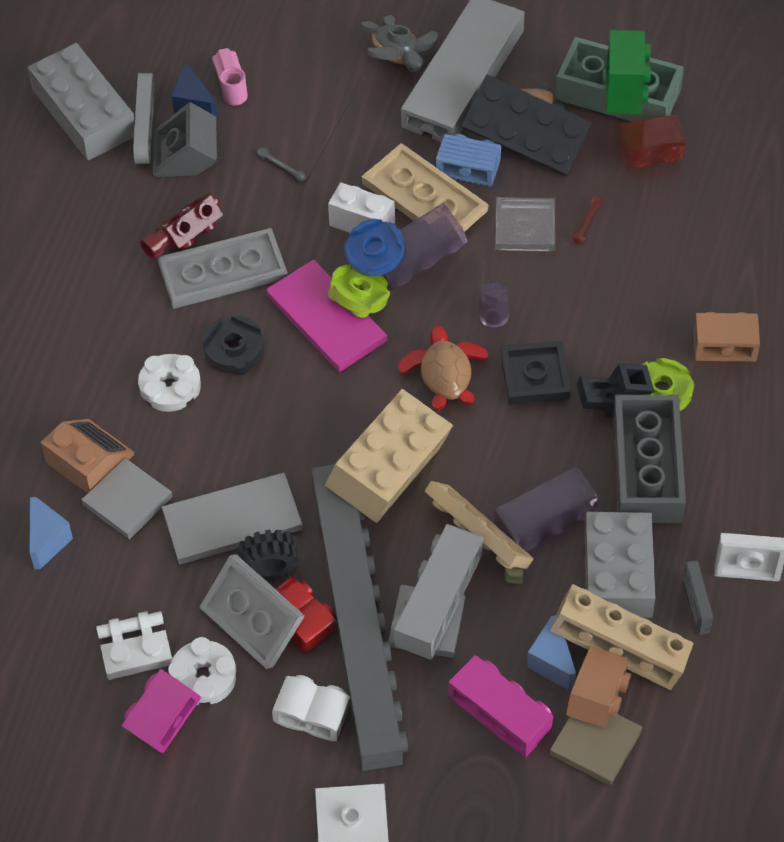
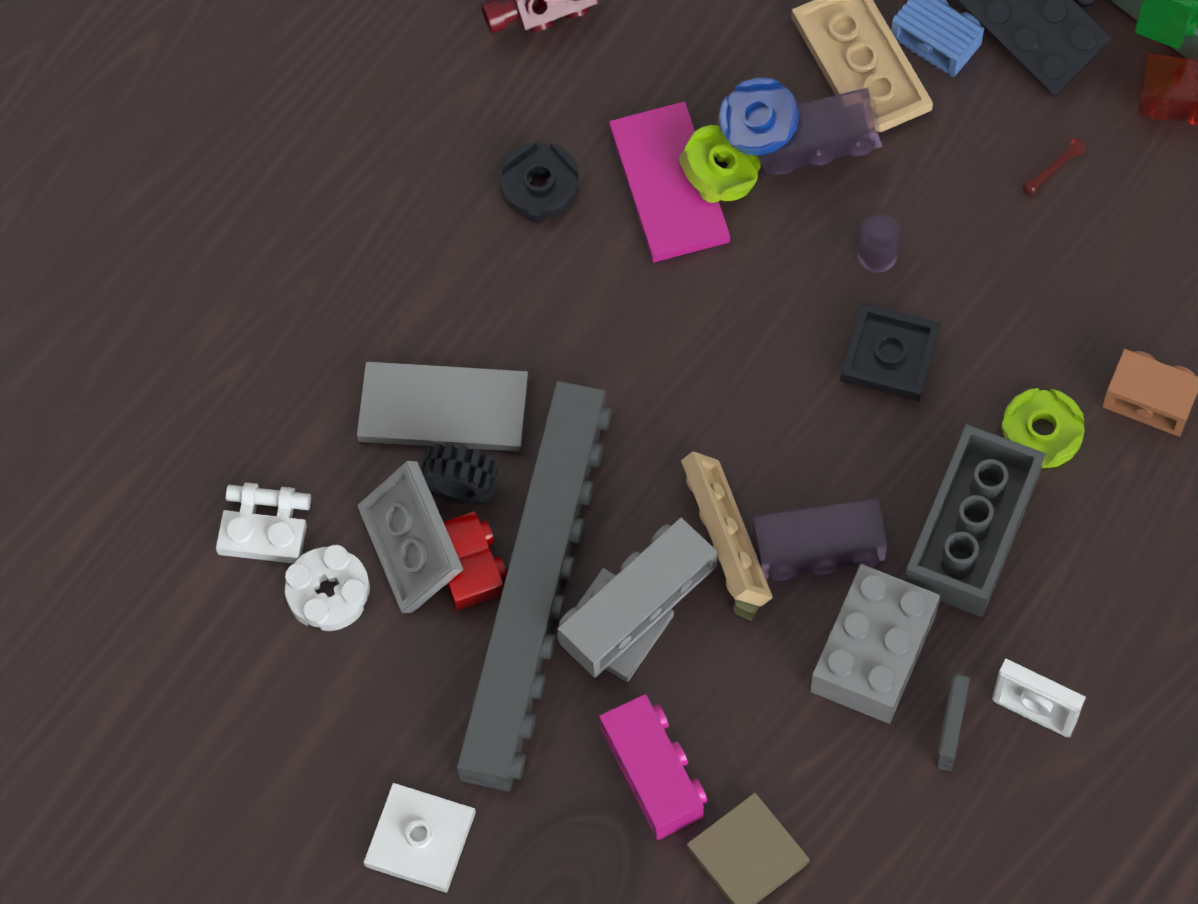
camera: 25 degrees right, 10 degrees up
(47, 533) = (217, 346): medium blue slope -> none
(83, 452) = (307, 259): nougat slope -> none
(127, 498) = (331, 335): light grey tile -> none
(160, 710) = (254, 620): dark pink brick -> none
(166, 367) = (452, 220): white plate -> none
(222, 268) = (571, 72): light grey tile -> none
(311, 707) = (431, 682): white brick -> none
(353, 206) = (762, 51): white brick -> none
(388, 455) = (654, 400): tan brick -> none
(445, 367) = (781, 305): medium nougat animal -> none
(525, 224) = (970, 145): clear tile -> none
(552, 658) = (740, 725): medium blue slope -> none
(598, 686) = (775, 791): nougat brick -> none
(607, 626) = (831, 739): tan brick -> none
(626, 379) = (988, 410): black brick -> none

